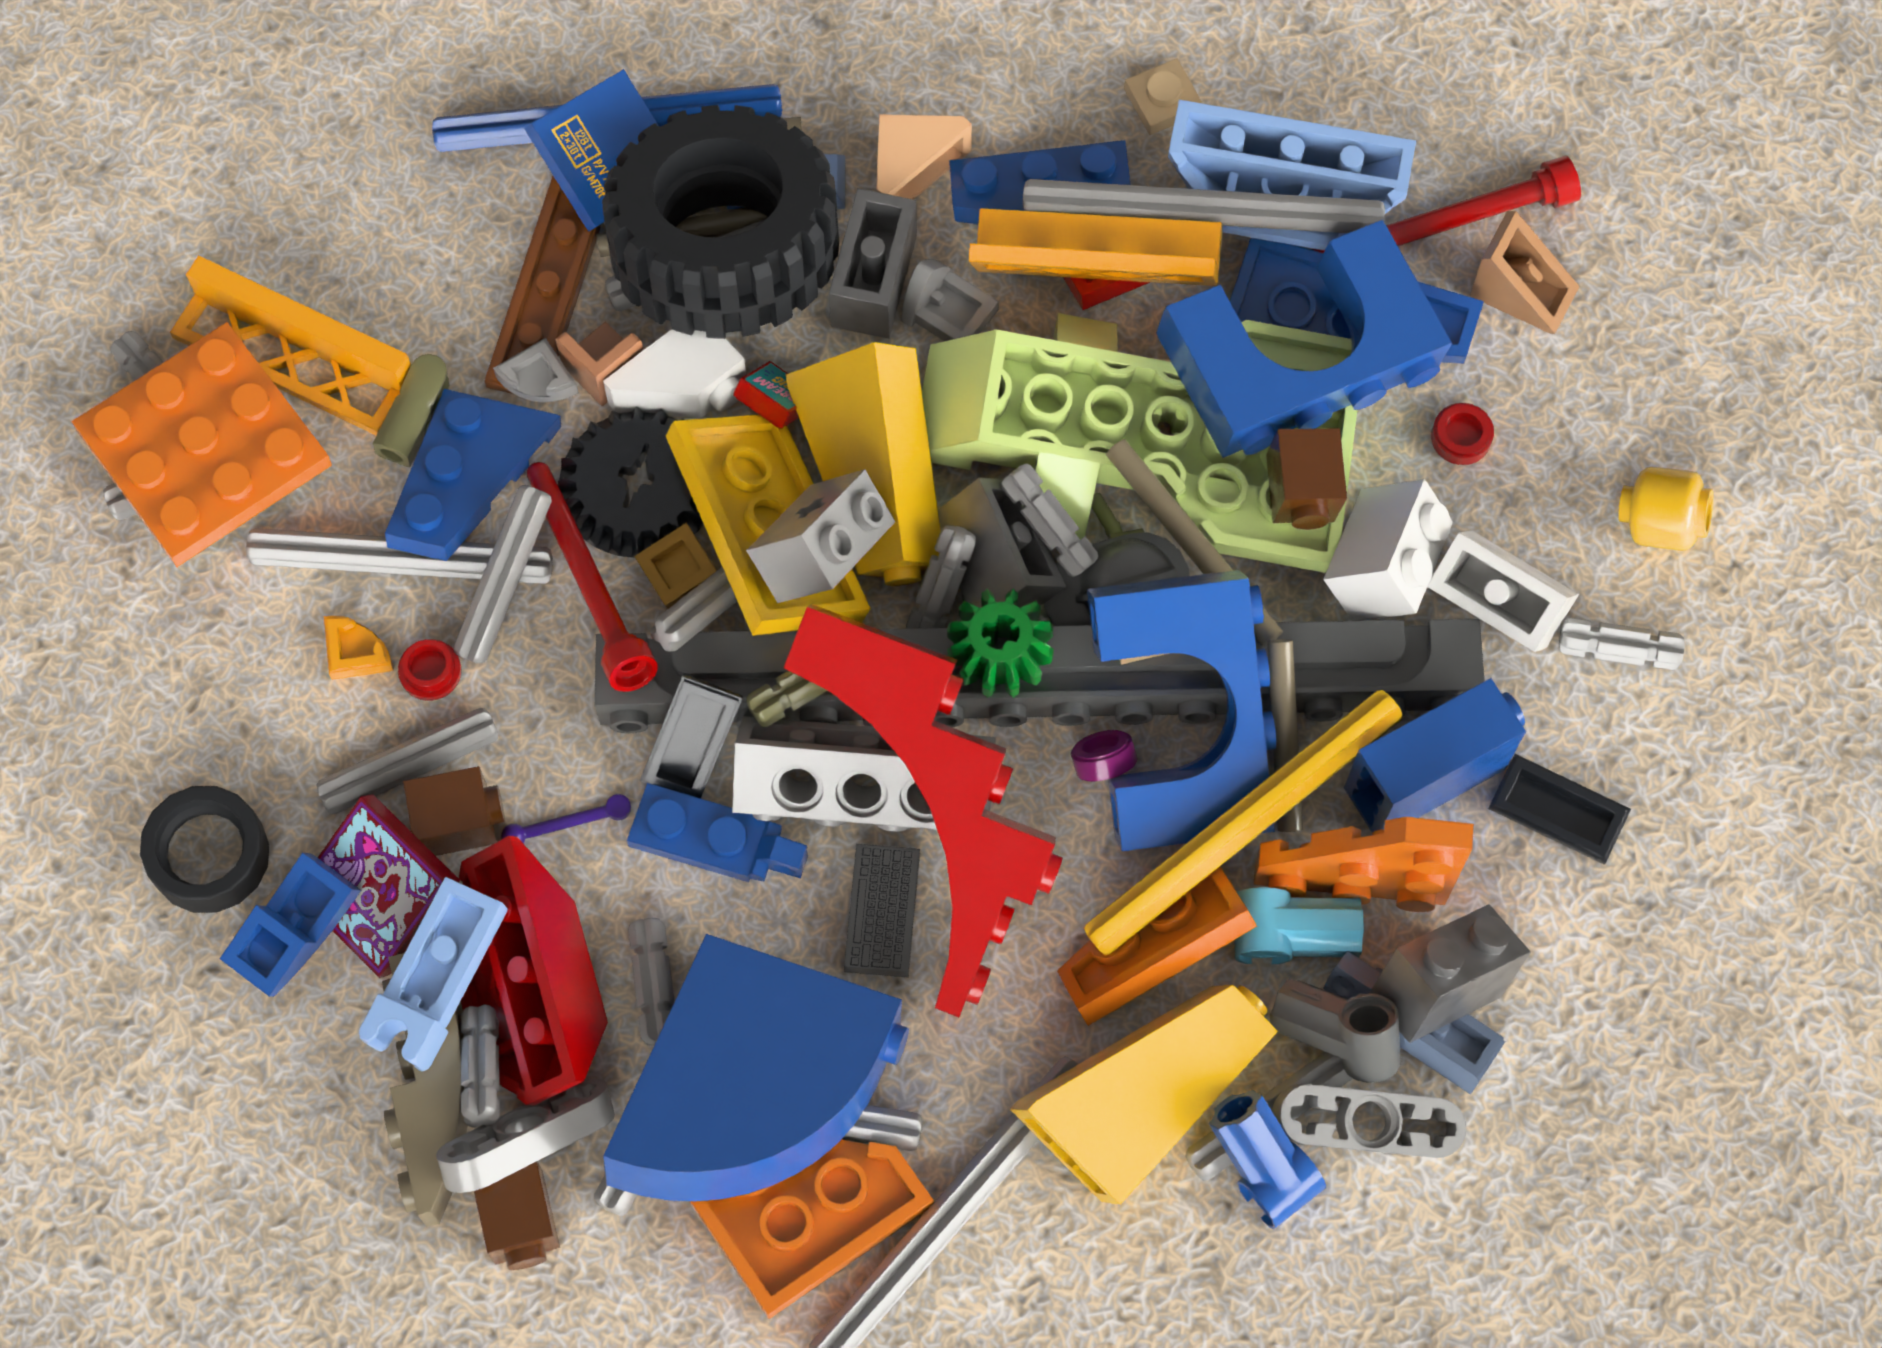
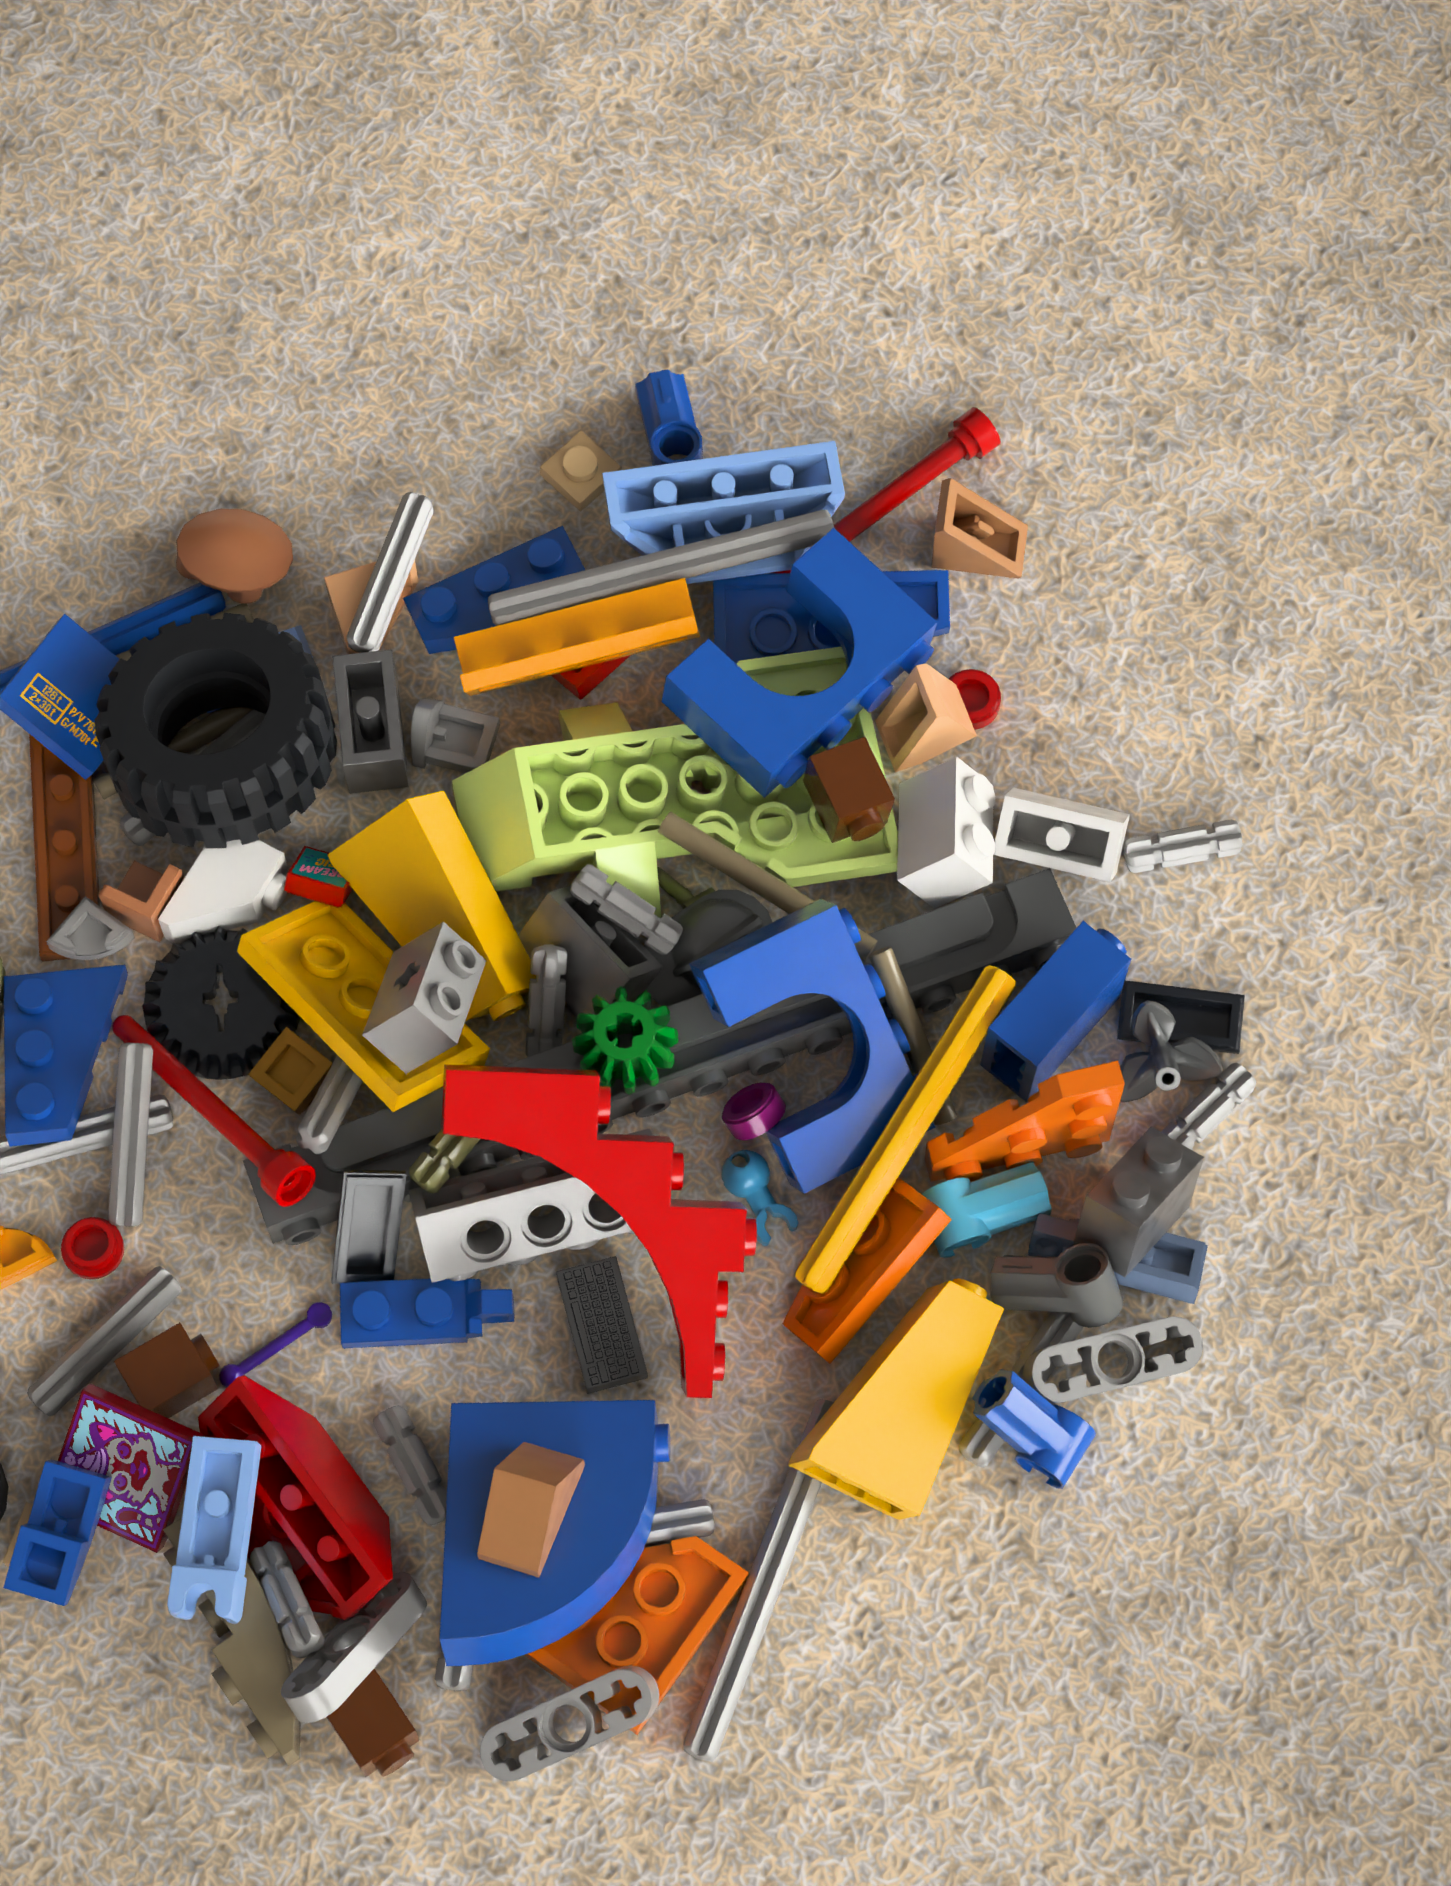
camera: 20 degrees left, 0 degrees up
(660, 1269) = (535, 1757): none -> light grey beam
(736, 1057) = (527, 1507): none -> medium nougat slope
(806, 67) = (234, 552): none -> nougat dish
(942, 129) = (390, 573): none -> light grey axle
(1076, 825) = (752, 1183): none -> dark azure arm
(1265, 70) = (668, 418): none -> blue piece
(1408, 435) = (923, 719): none -> light nougat slope
(1521, 849) = (1164, 1062): none -> dark grey plant
(1558, 906) = (1211, 1106): none -> light grey axle
(1667, 508) = (1180, 707): yellow head -> none

